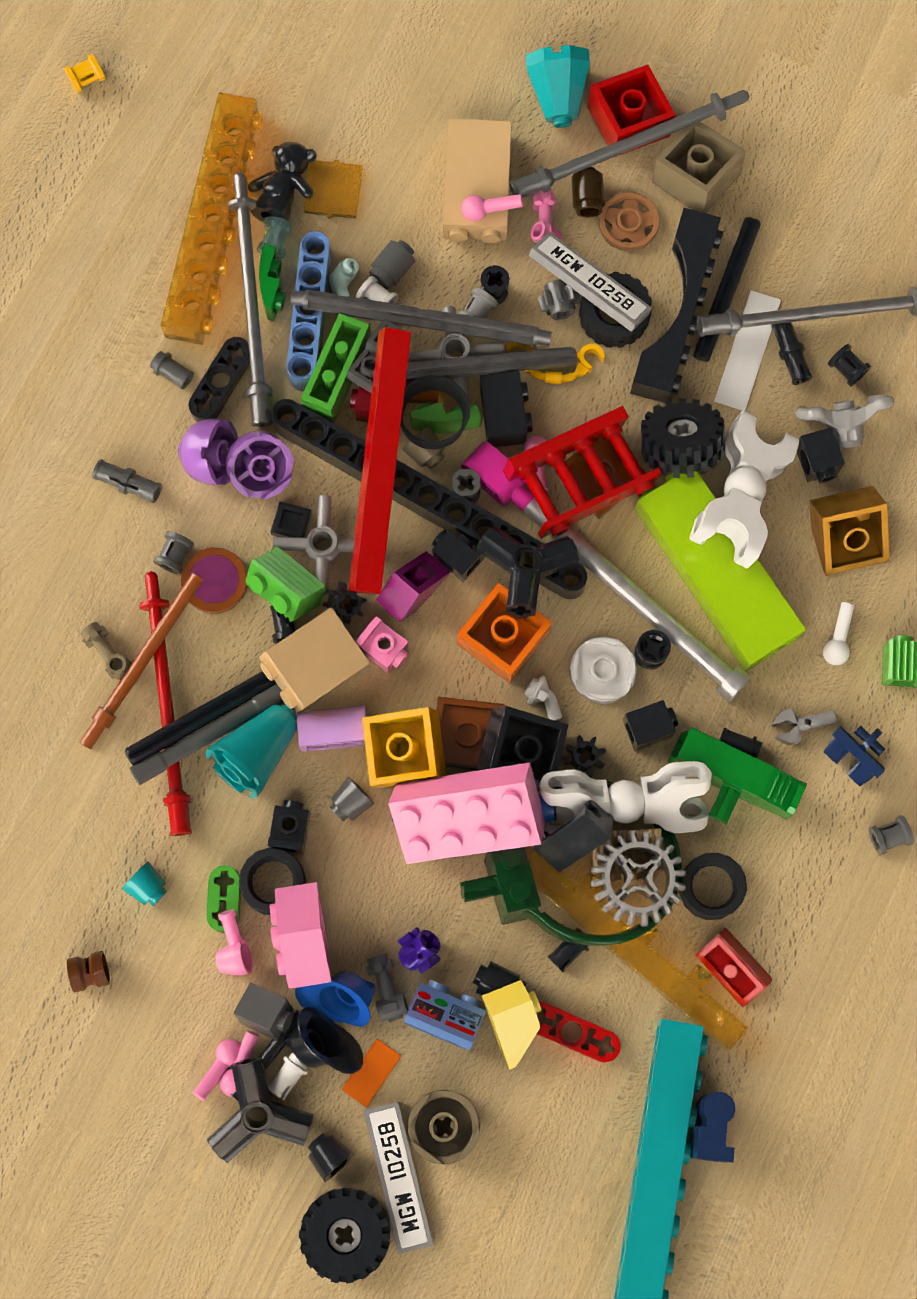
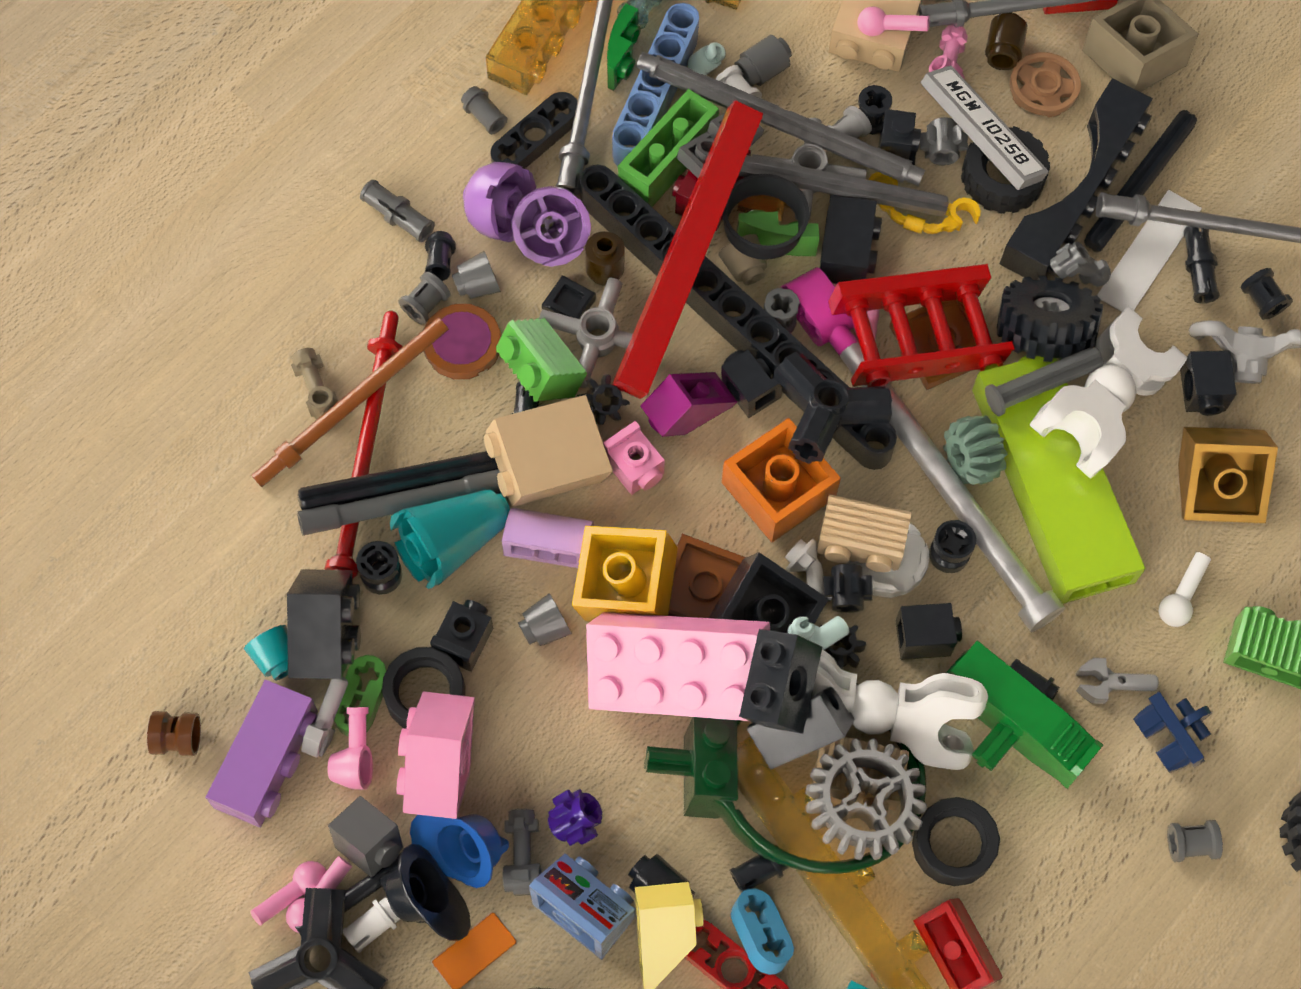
camera: 15 degrees right, 10 degrees down
(164, 967) = (262, 754): none -> medium lavender brick
(173, 505) = (440, 248): none -> black pin
(180, 856) = (322, 624): none -> black brick
(203, 935) = (319, 734): none -> light grey bar
(210, 523) = (476, 277): none -> dark grey hat
(210, 797) = (380, 577): none -> black wheel
(313, 487) = (604, 257): none -> dark brown brick
(522, 305) = (899, 134): none -> black brick
(552, 811) = (780, 681): none -> black brick
(567, 759) = (824, 635): none -> light aqua arm
(579, 707) = (847, 588): none -> black gear
(581, 661) = (863, 533): none -> tan brick
(583, 998) = (762, 931): none -> dark azure beam
(651, 566) = (975, 449): none -> sand green gear
(691, 382) = (1074, 260): none -> dark grey bar
(691, 494) = (1042, 380): none -> dark grey axle

